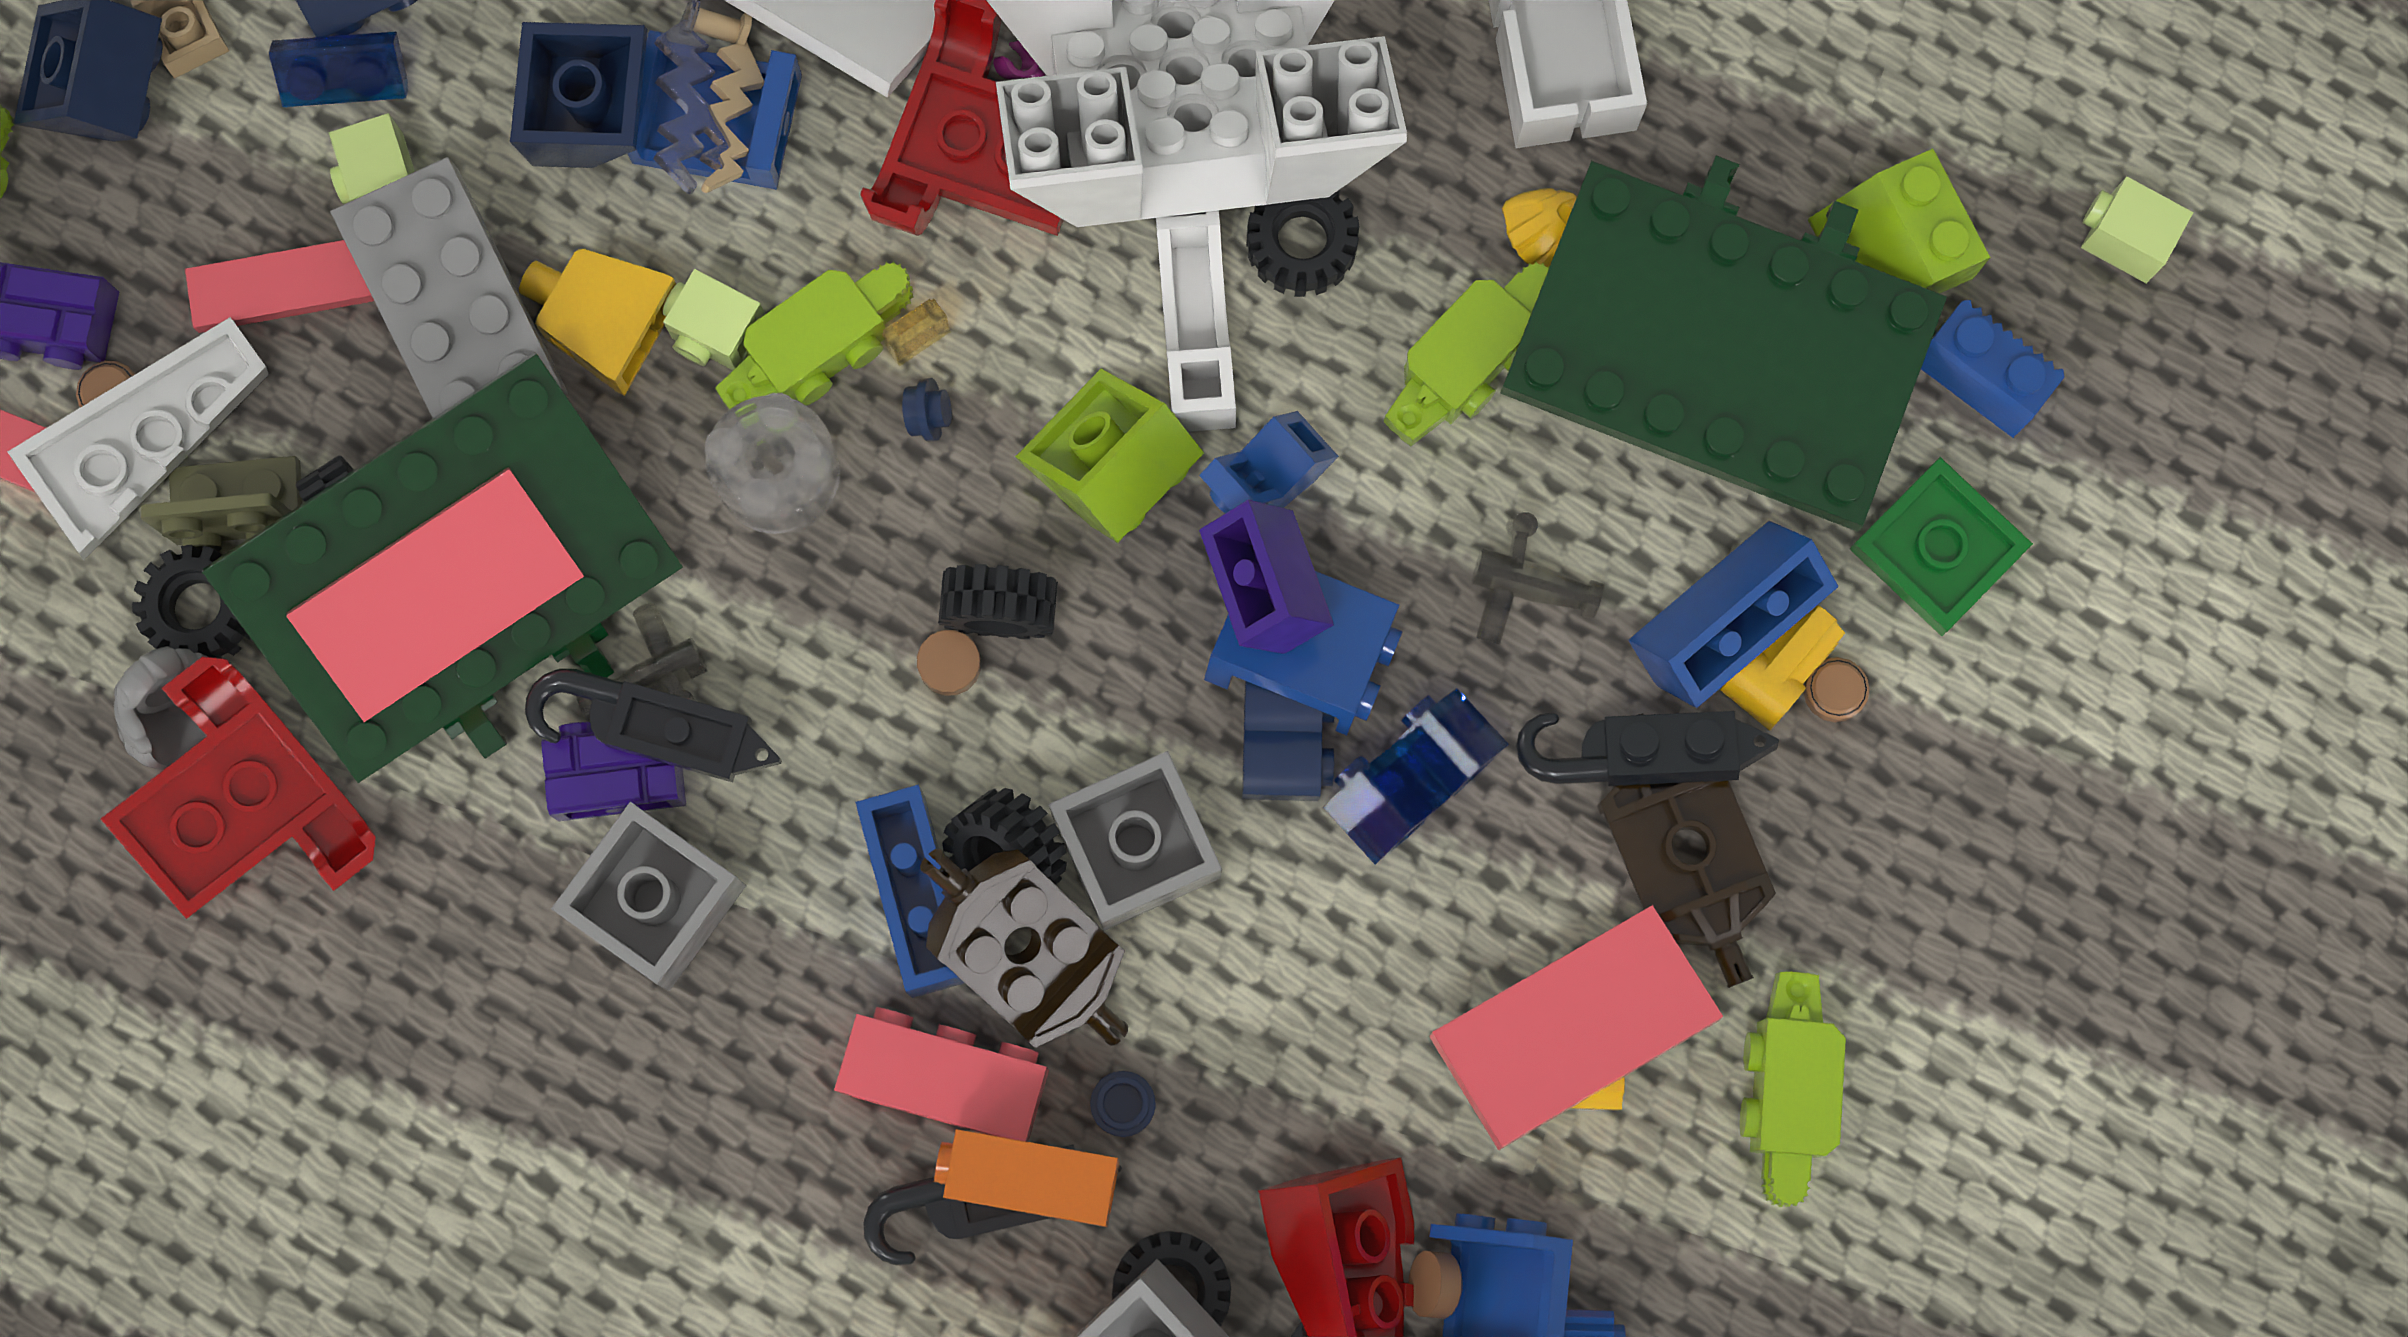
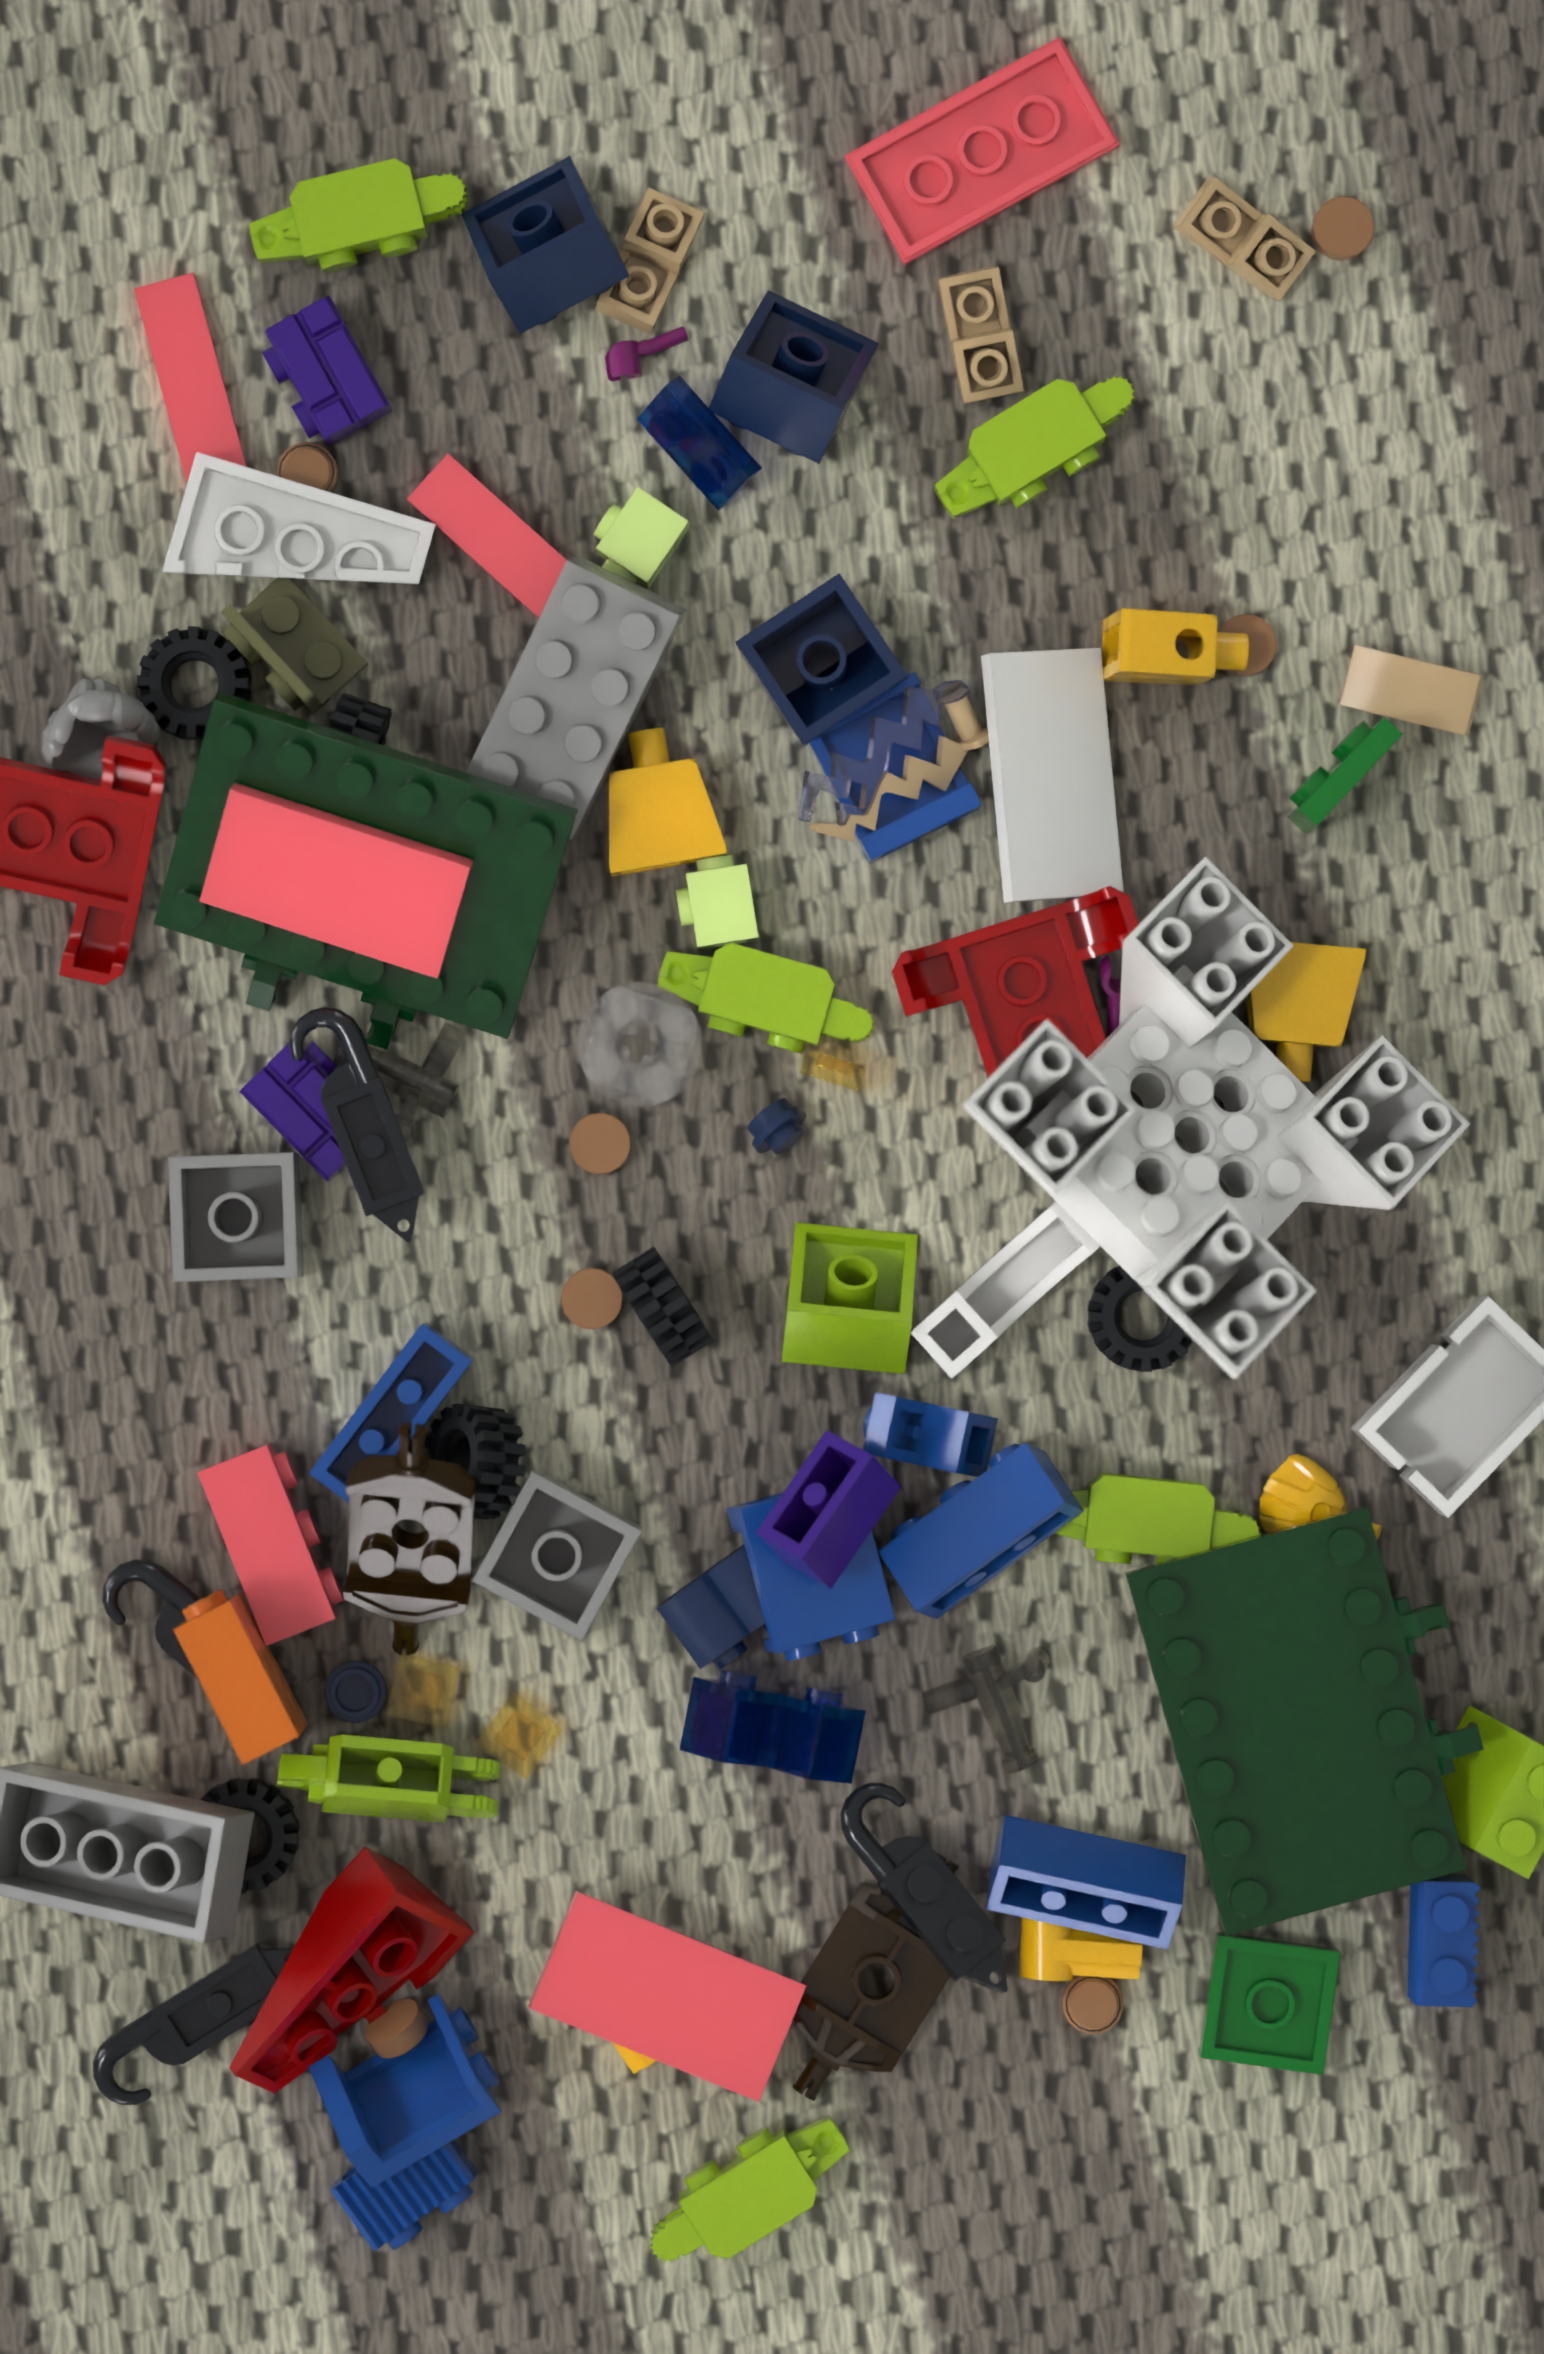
camera: 55 degrees right, 10 degrees up
(227, 75) = (624, 355): none -> magenta hand
(828, 562) = (600, 1143): none -> medium nougat piece
(1165, 1046) = (423, 1690): none -> clear yellow tile
(1216, 1126) = (389, 1778): none -> lime hinge
(1263, 993) = (519, 1735): none -> clear yellow tile
(1376, 482) = (979, 1529): none -> blue brick

